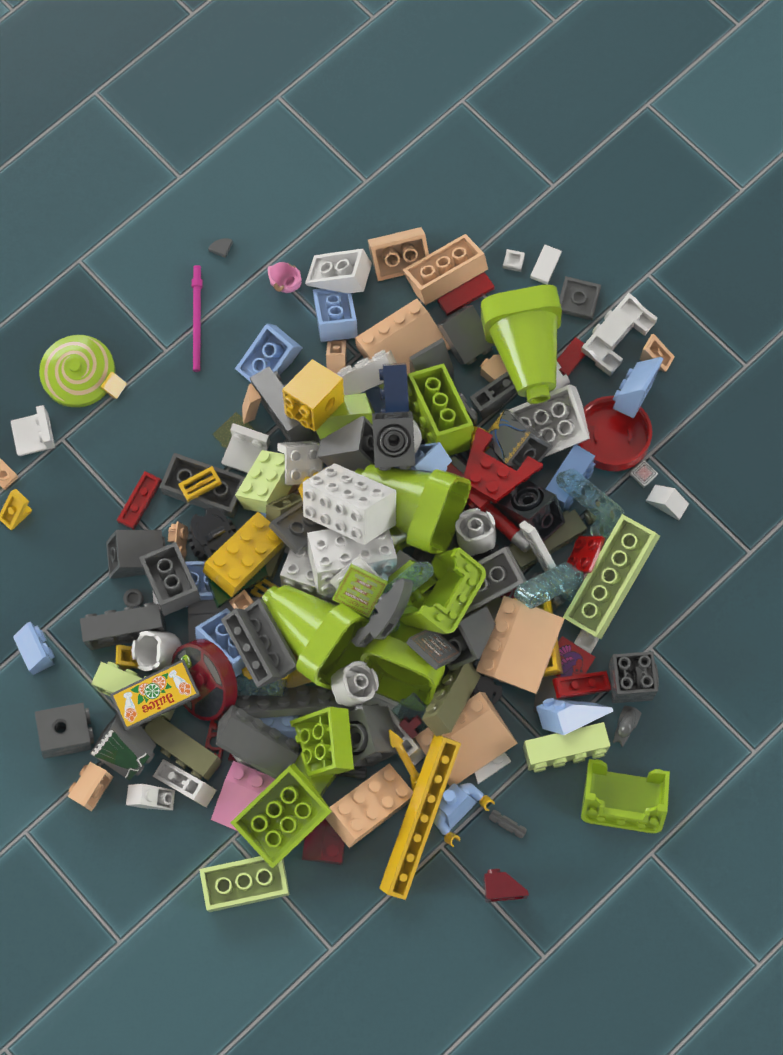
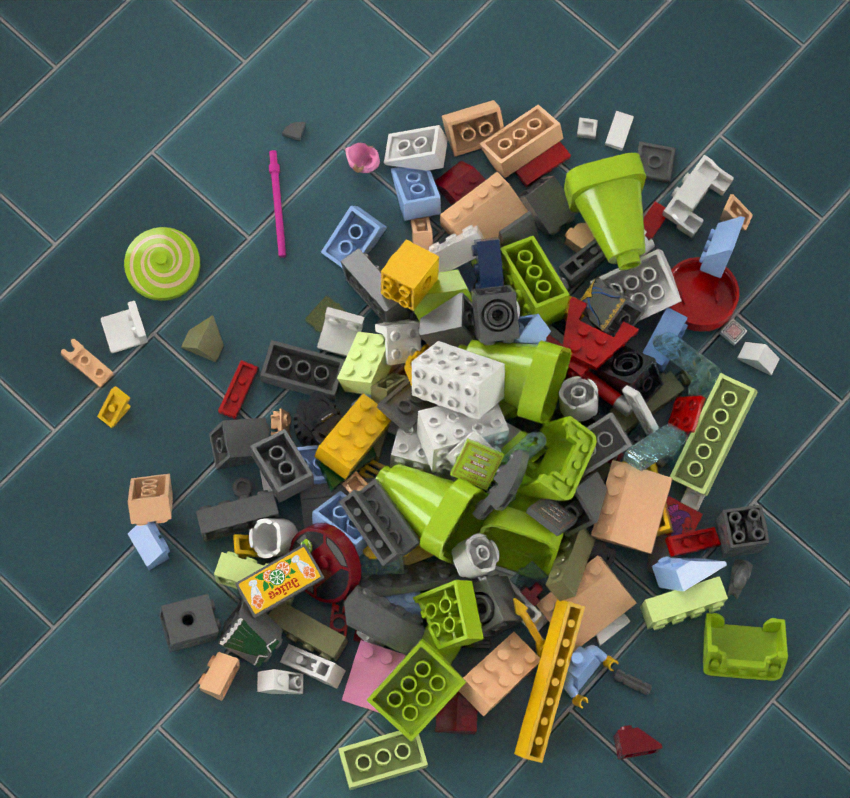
camera: 15 degrees left, 0 degrees up
(35, 604) = (150, 499): none -> light nougat brick
(111, 449) = (204, 340): none -> olive slope
(113, 385) = (201, 276): tile -> none
(217, 482) = (305, 375): yellow tile -> none
(250, 404) = (342, 286): light nougat slope -> none
(378, 306) = (458, 181): none -> dark red slope

